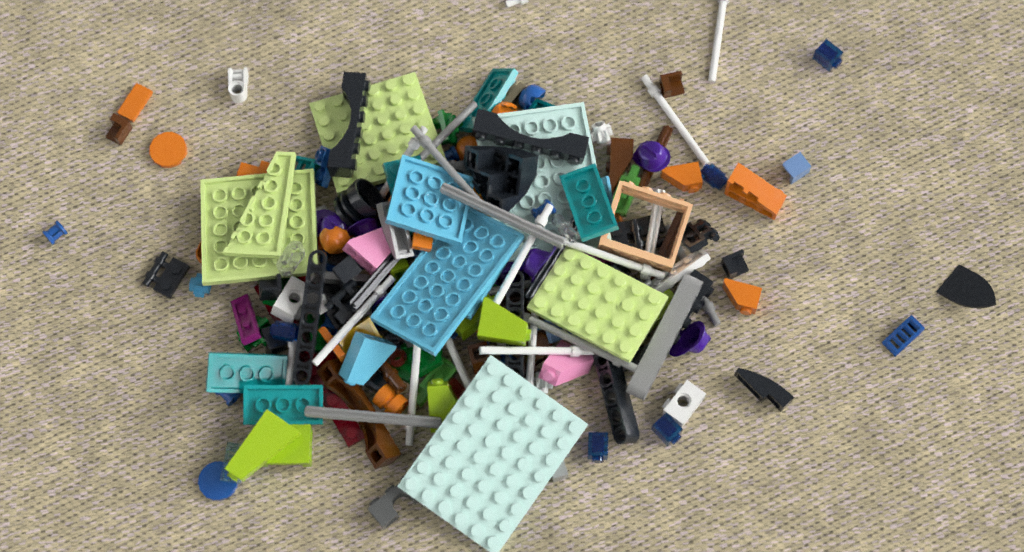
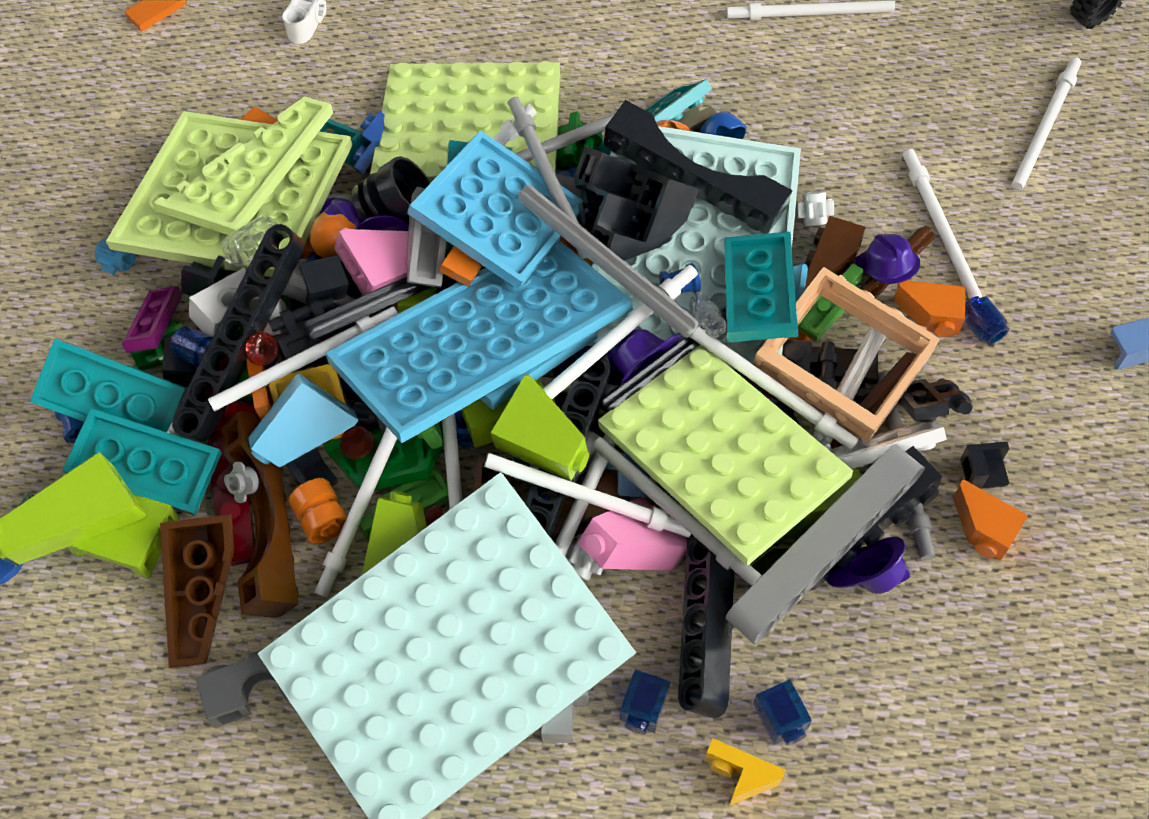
camera: 20 degrees right, 10 degrees down
(119, 129) = (118, 33): reddish brown panel -> none
(168, 149) = (168, 73): orange tile -> none
(171, 277) = (80, 237): black plate -> none
(327, 322) = (269, 348): none -> clear red plate
(342, 157) = (400, 127): black arch -> none
(342, 457) = (194, 576): none -> reddish brown wedge
(343, 398) = (241, 481): none -> light grey plate
(372, 417) = (271, 523): light grey axle -> none
(391, 375) = (335, 470): reddish brown pin -> none
(662, 463) = (754, 772): none -> yellow slope
(671, 84) = (950, 171): reddish brown panel -> none
(691, 395) = (844, 661): white brick -> none
(754, 192) = (1051, 358): orange wedge -> none
(764, 388) = (989, 696): black slope -> none

